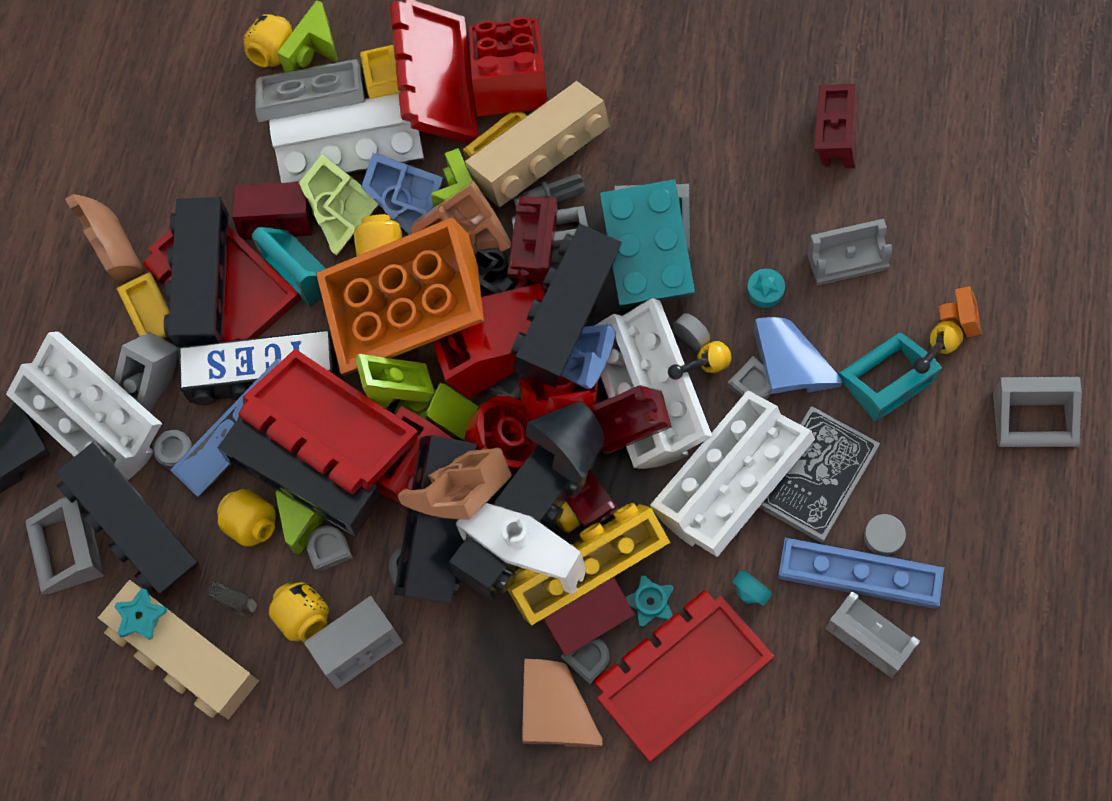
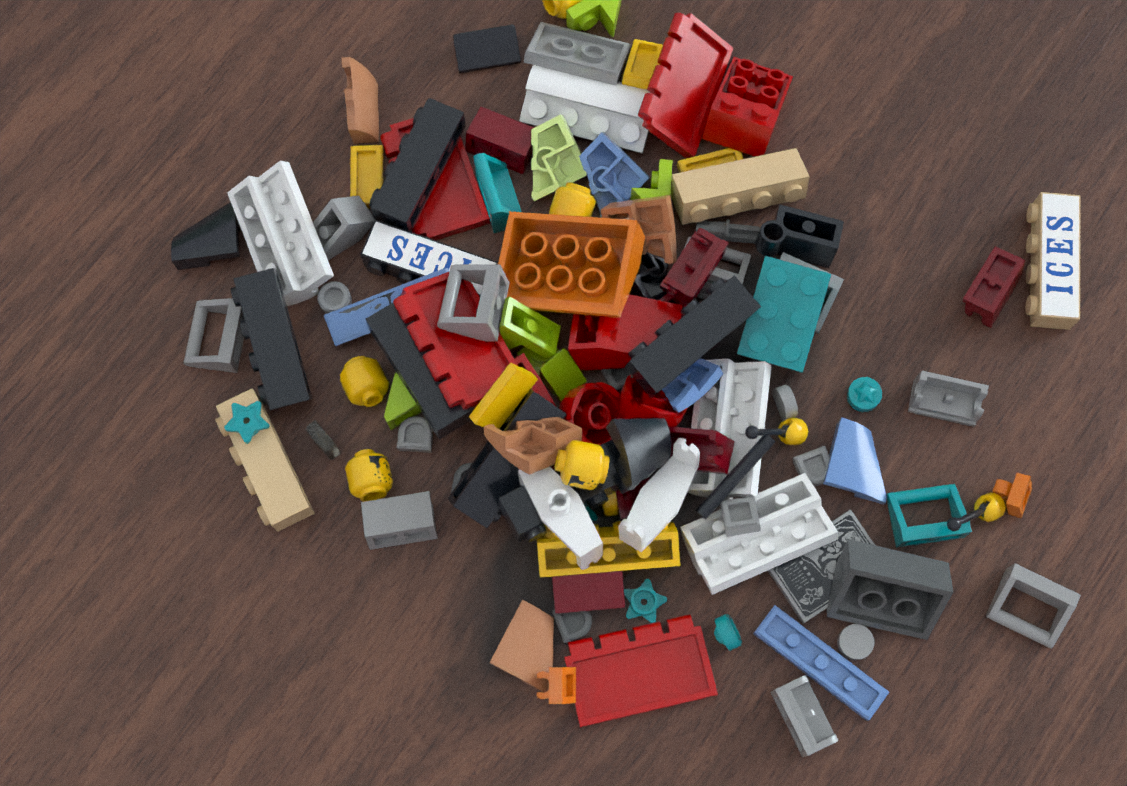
camera: 20 degrees right, 5 degrees up
(212, 128) = (486, 48): none -> black slope
(340, 353) = (489, 312): none -> light grey tile
(402, 456) = (503, 396): none -> yellow tile
(520, 483) = (582, 465): none -> yellow head
(609, 726) = (561, 685): none -> orange tile
(616, 480) = (660, 497): none -> white piece
(624, 161) = (801, 235): none -> black hinge
(680, 425) = (735, 476): none -> black bar
(705, 463) = (740, 516): none -> light grey tile
(883, 74) = (1054, 261): none -> brick
(891, 464) = (889, 589): none -> dark grey slope

